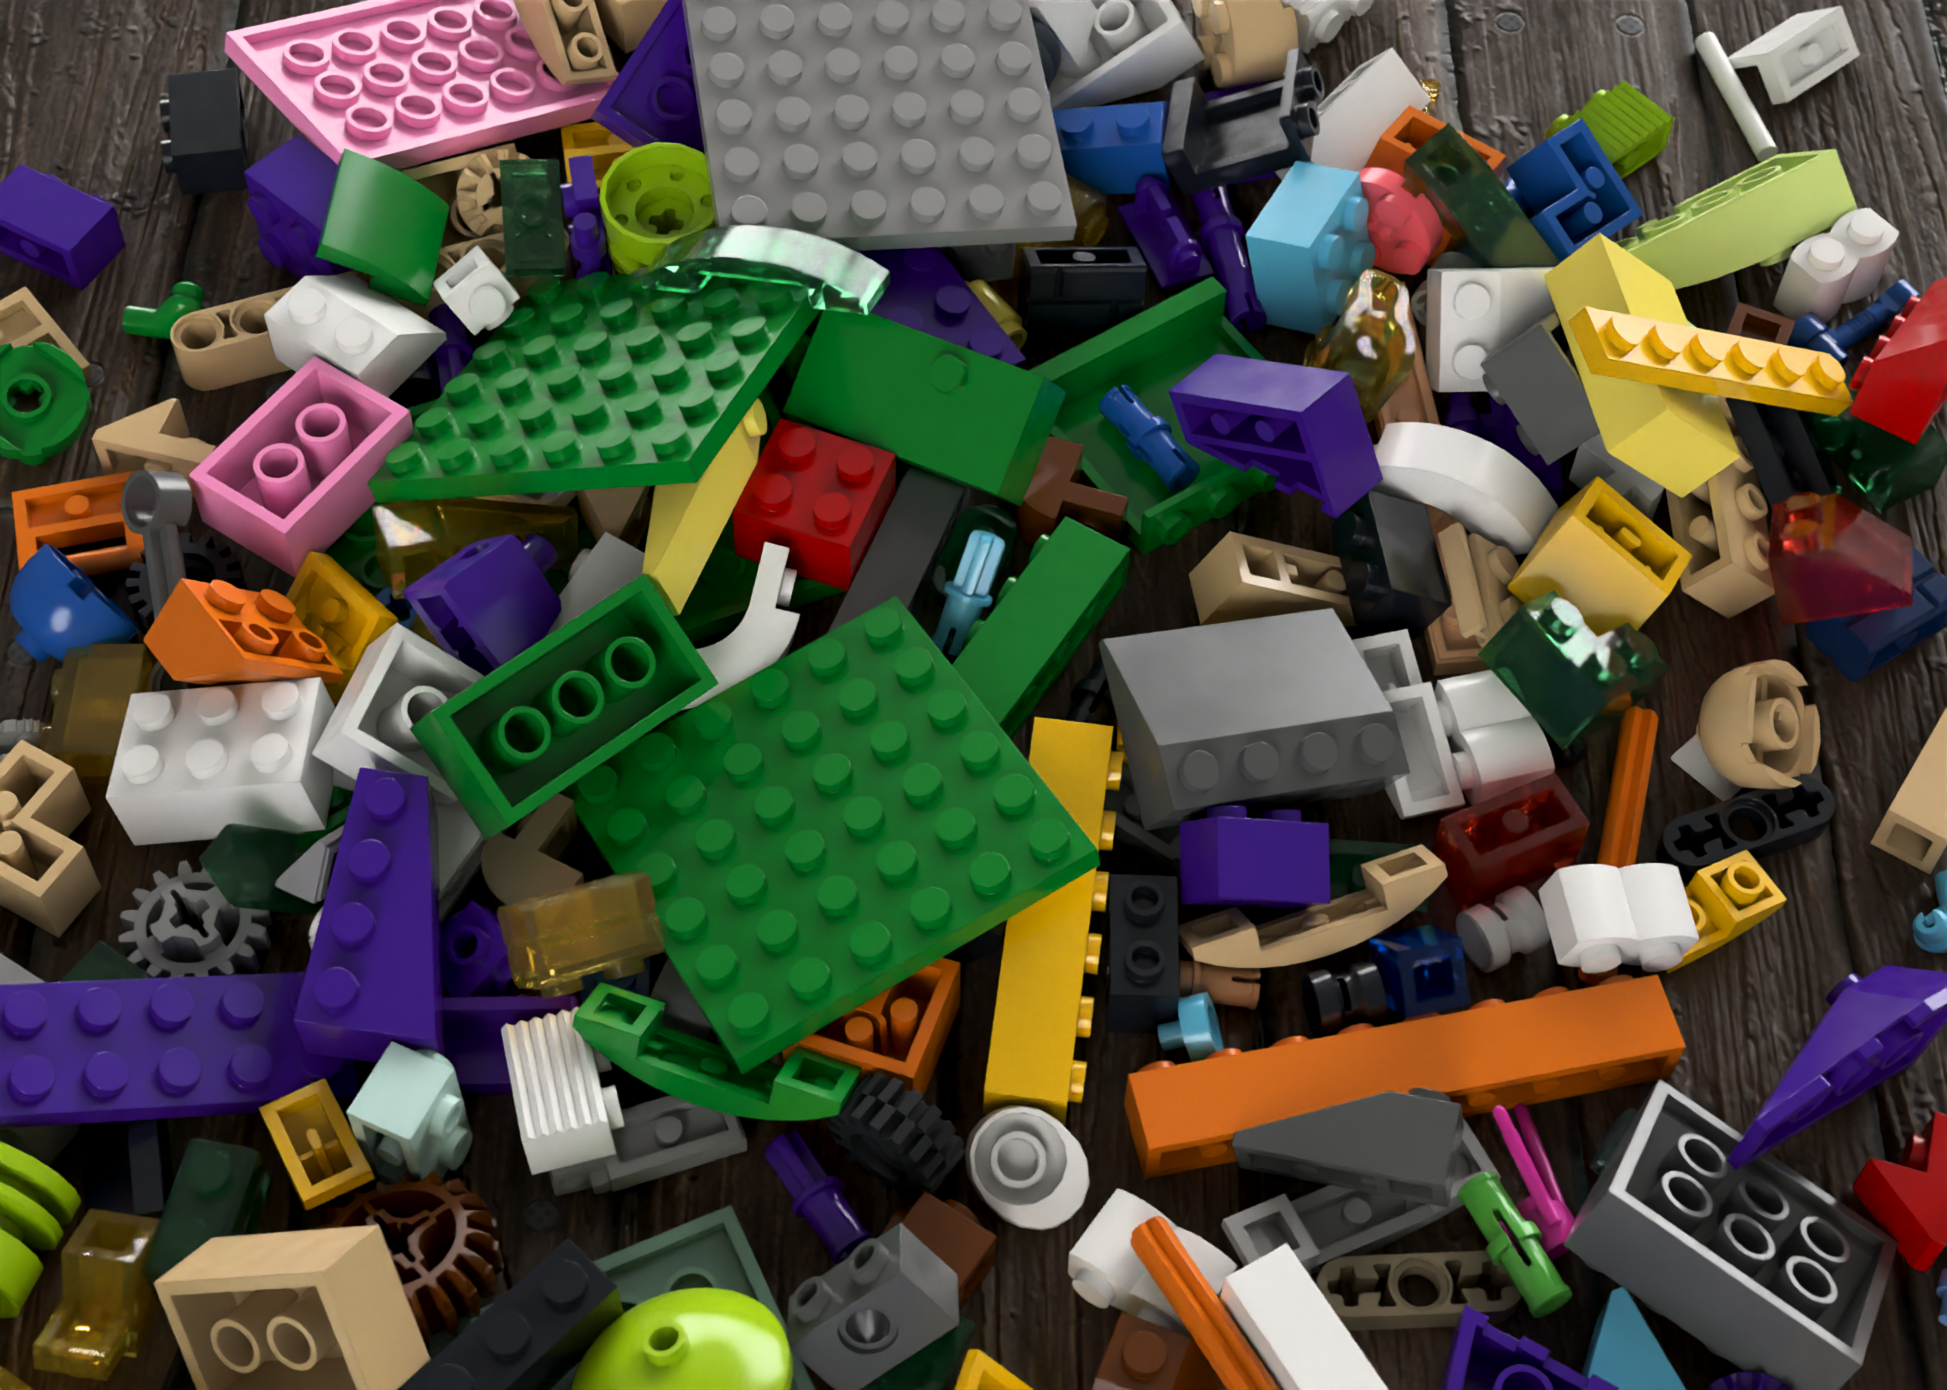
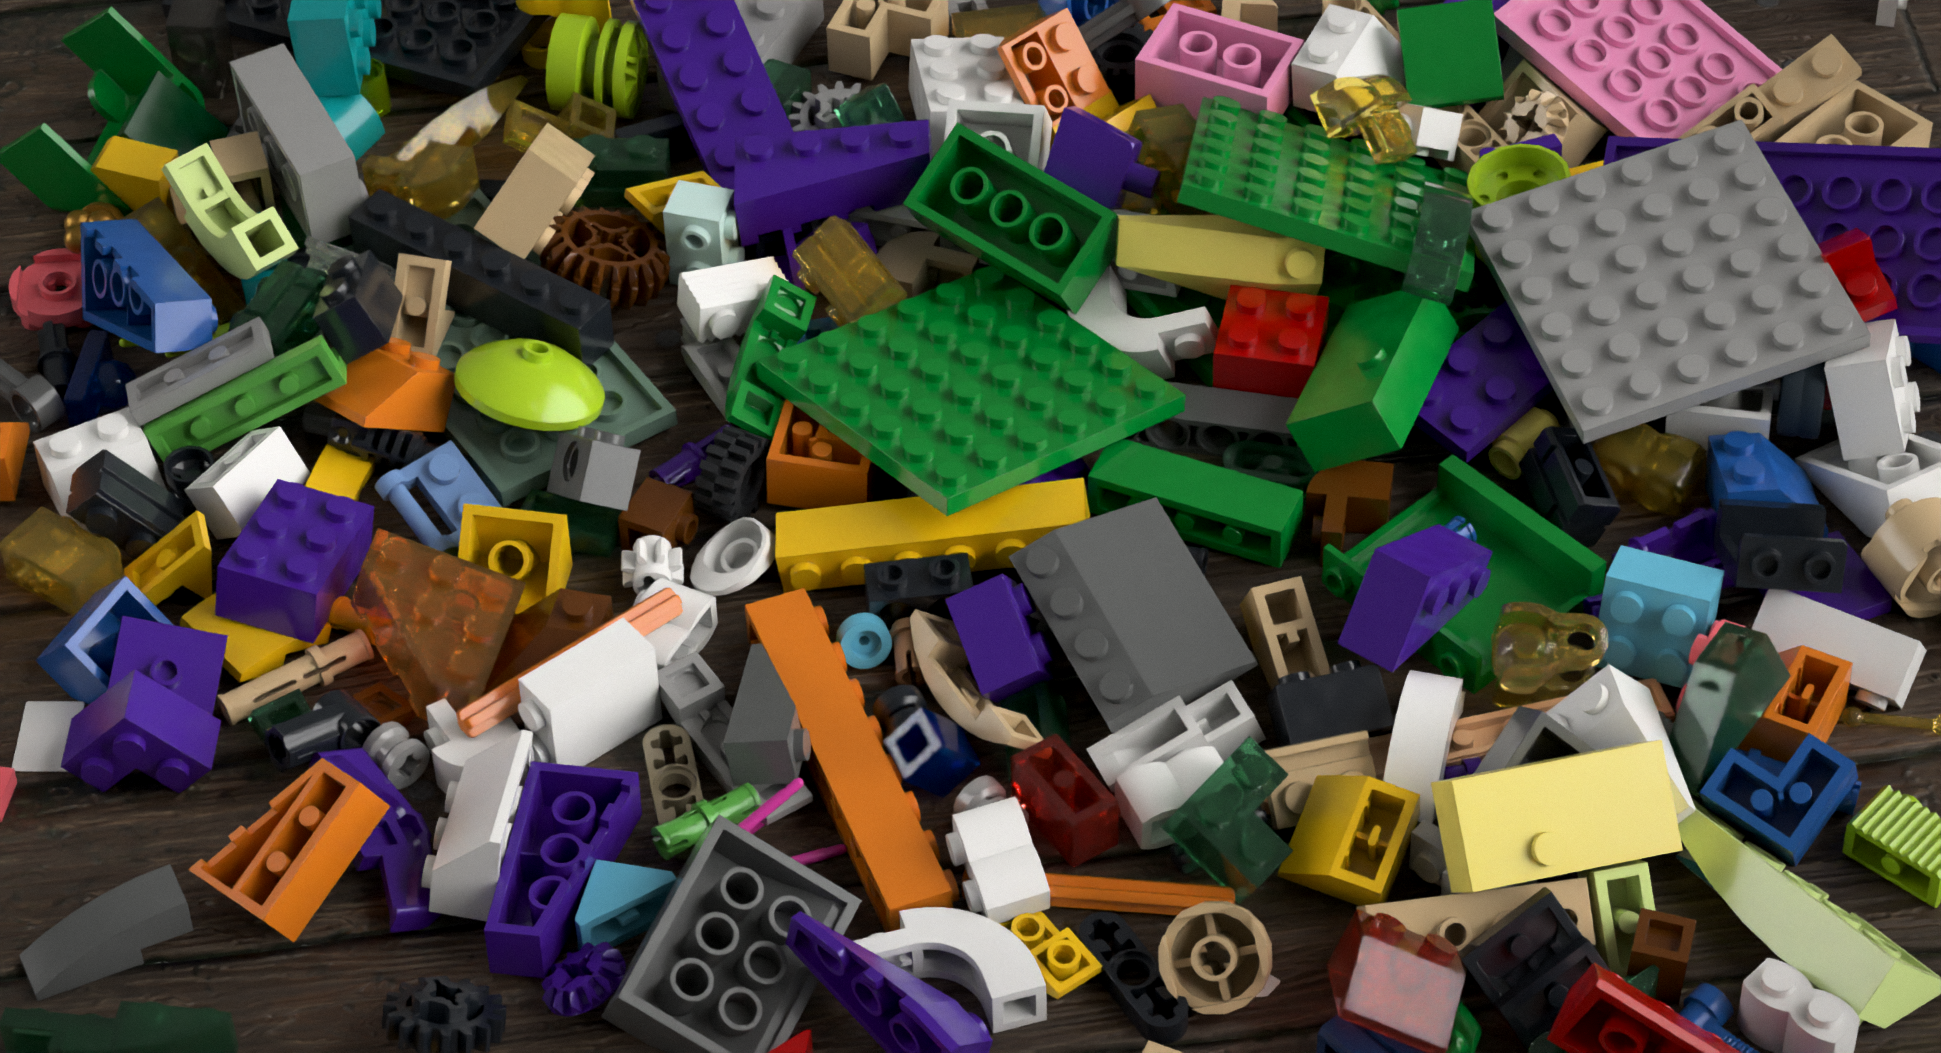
camera: 85 degrees right, 10 degrees down
(462, 312) = (1369, 107): none -> clear yellow brick
(532, 218) = (1506, 128): clear green plate -> none
(969, 589) = (1229, 447): medium azure axle -> none
(1030, 1268) = (649, 561): none -> white gear
(1709, 362) = (1538, 828): yellow plate -> none
(1745, 957) = (972, 953): none -> white arch

